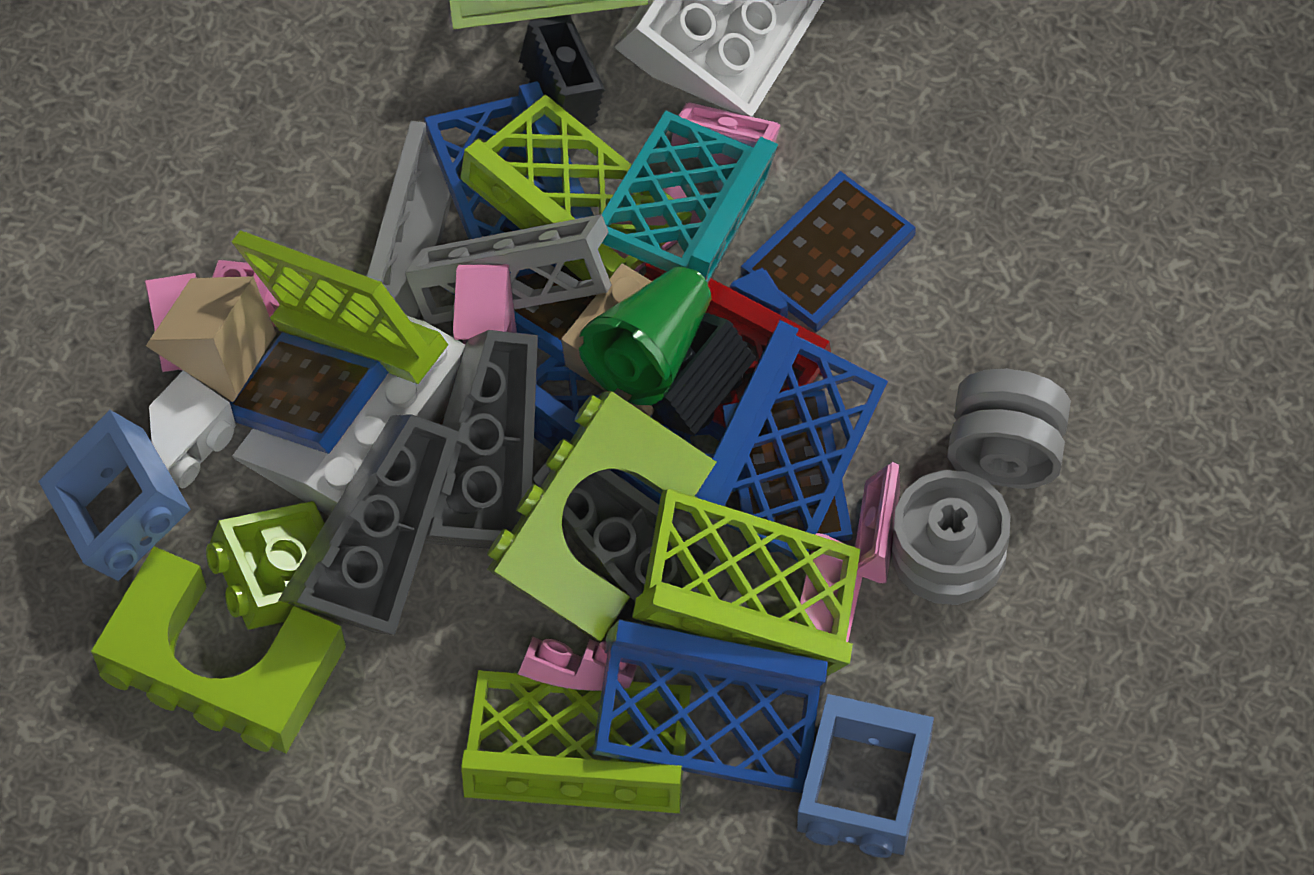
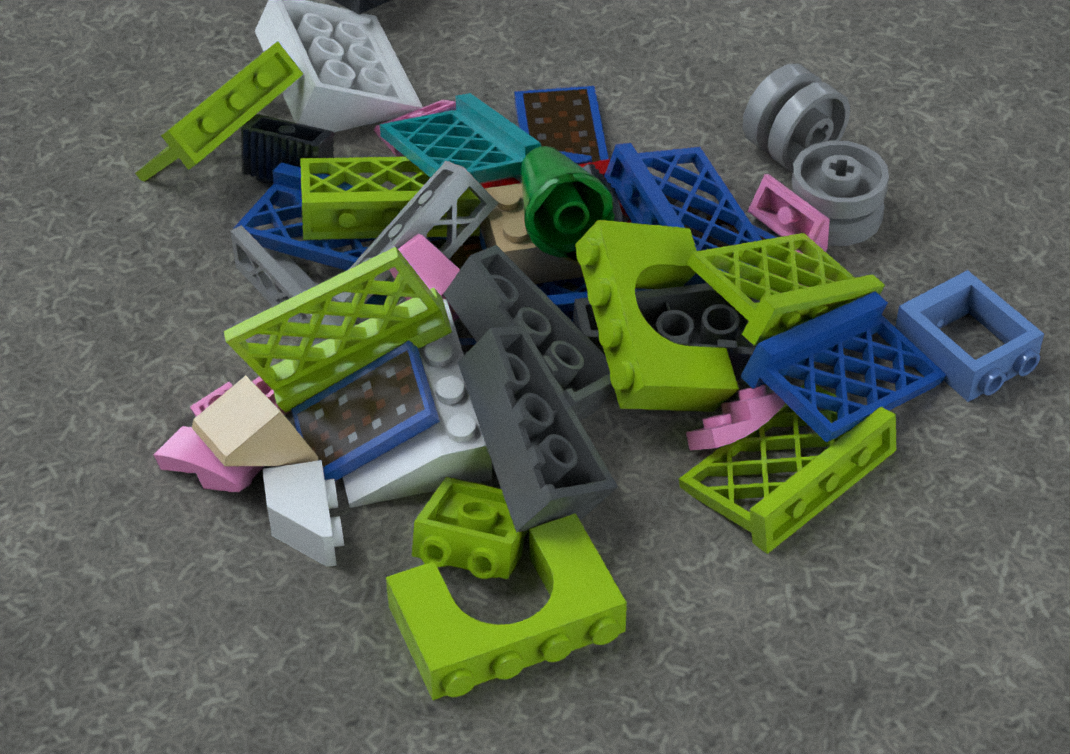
camera: 50 degrees left, 15 degrees down
(88, 469) = (273, 567): medium blue window -> none

